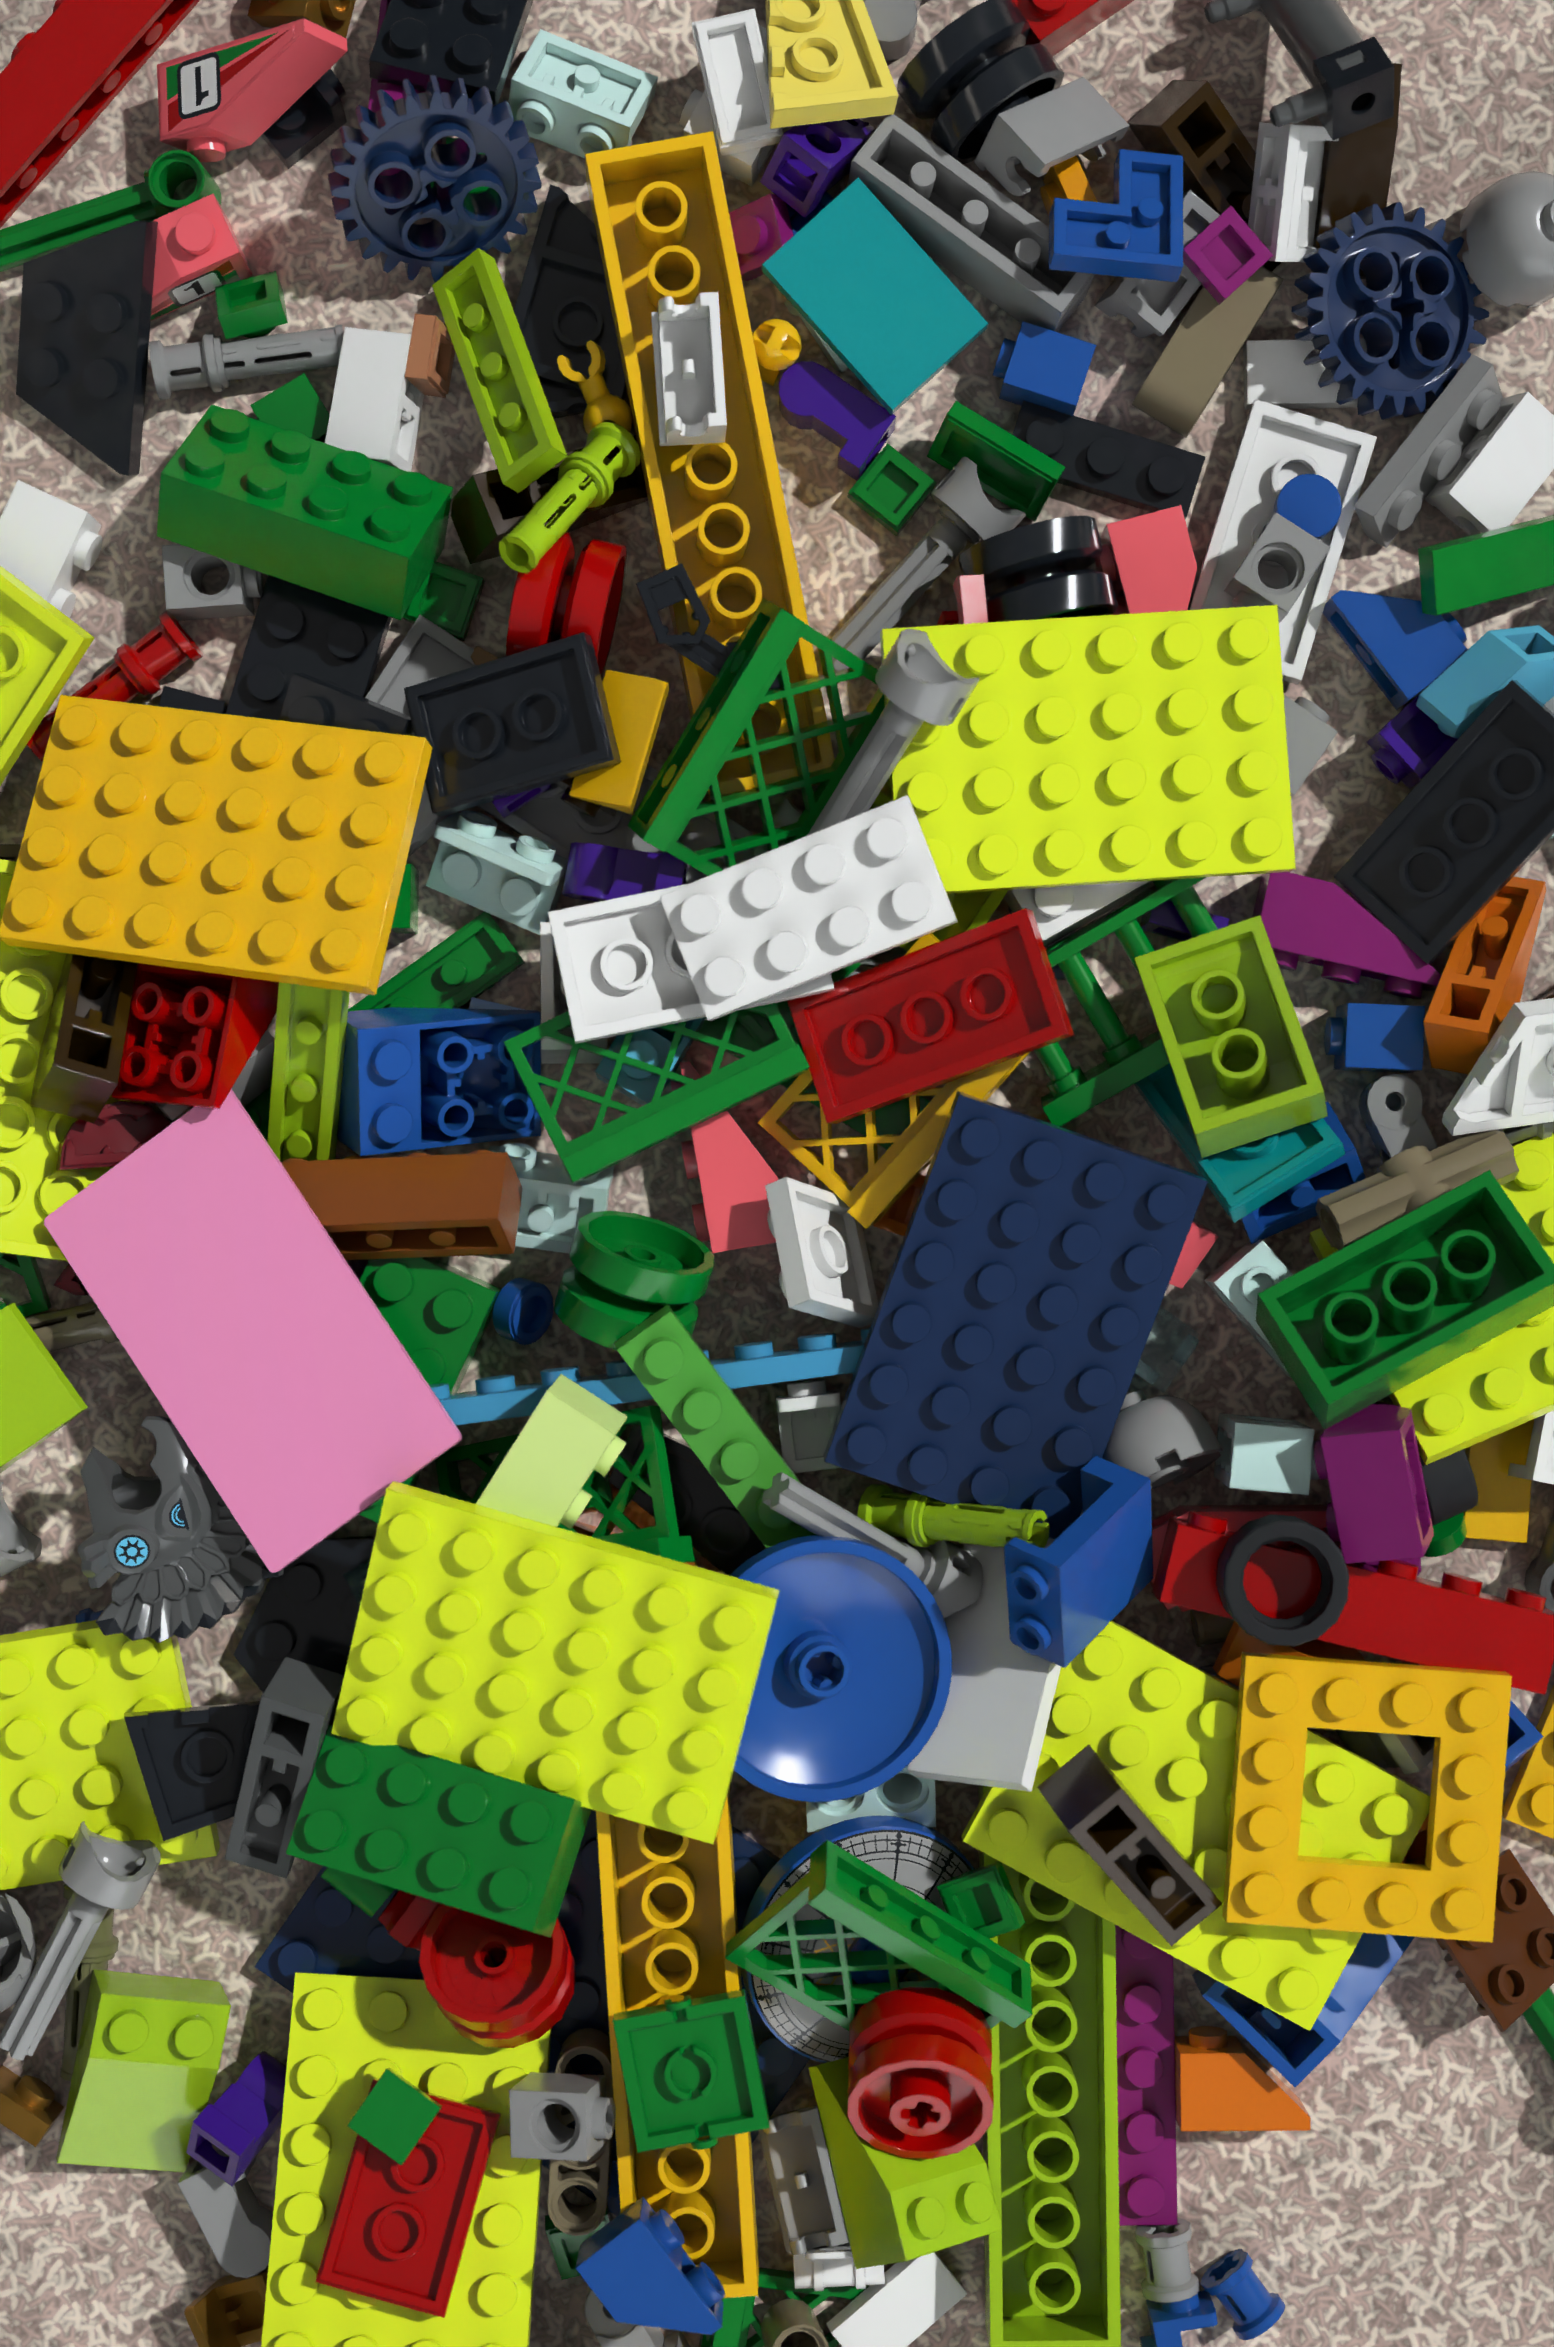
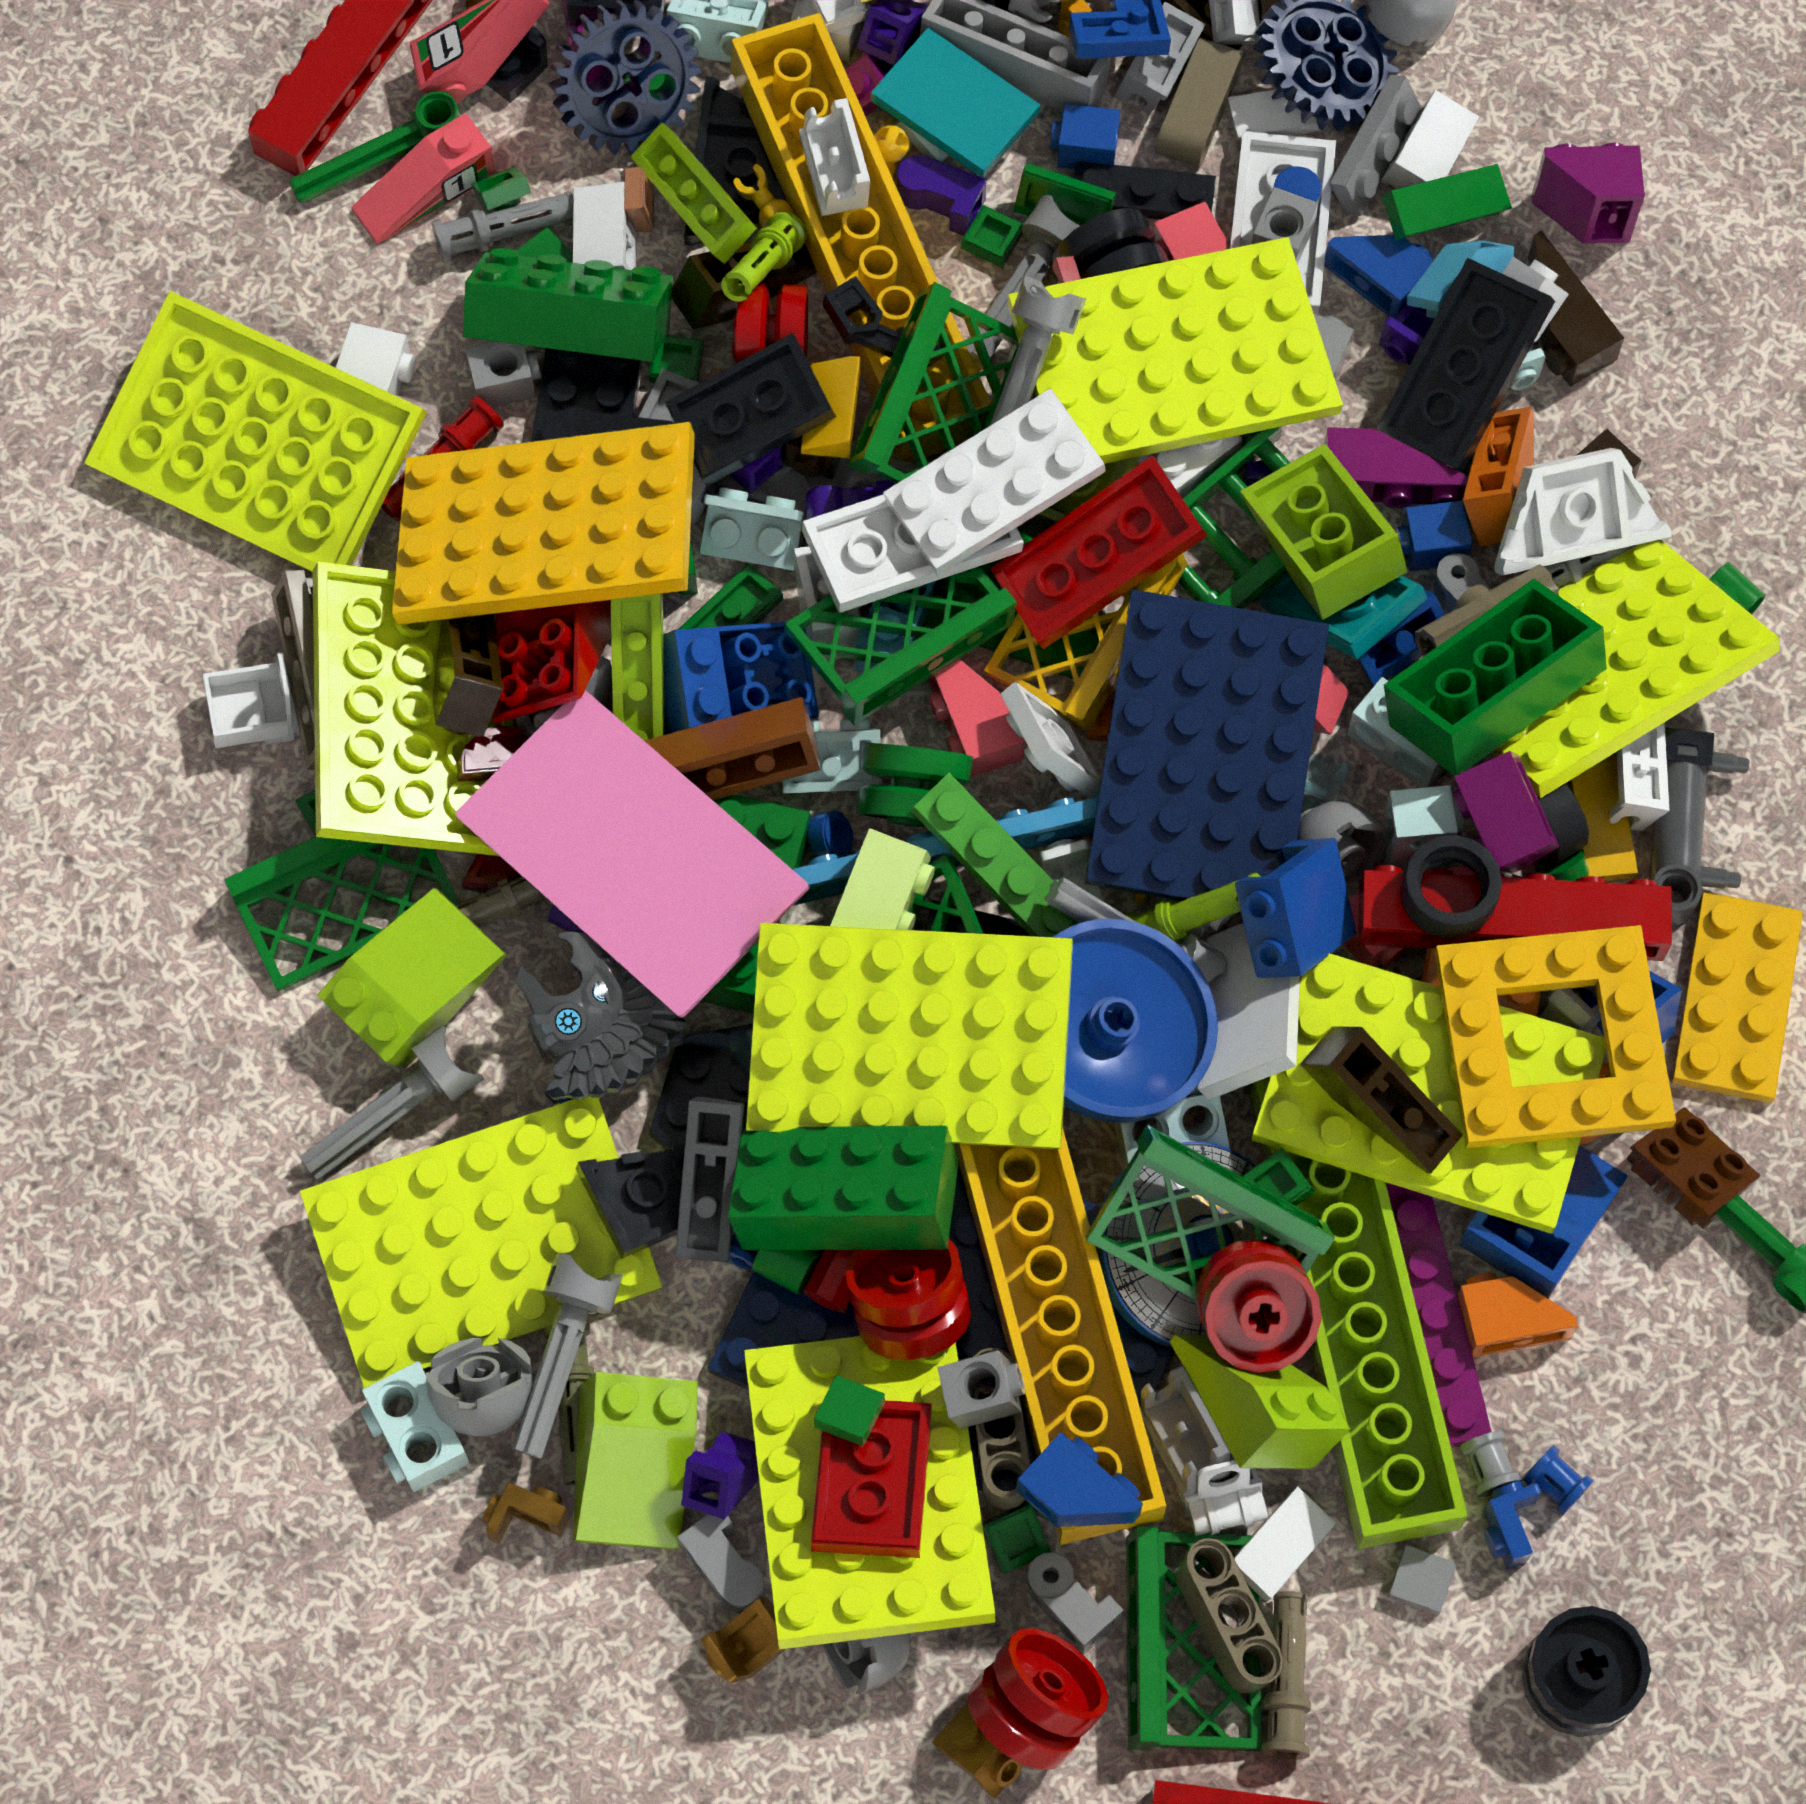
camera: 10 degrees left, 20 degrees down
(89, 340) = (387, 225): black wing -> none
(691, 2071) = (1077, 1328): green plate -> none
(1225, 255) = (1199, 35): magenta plate -> none

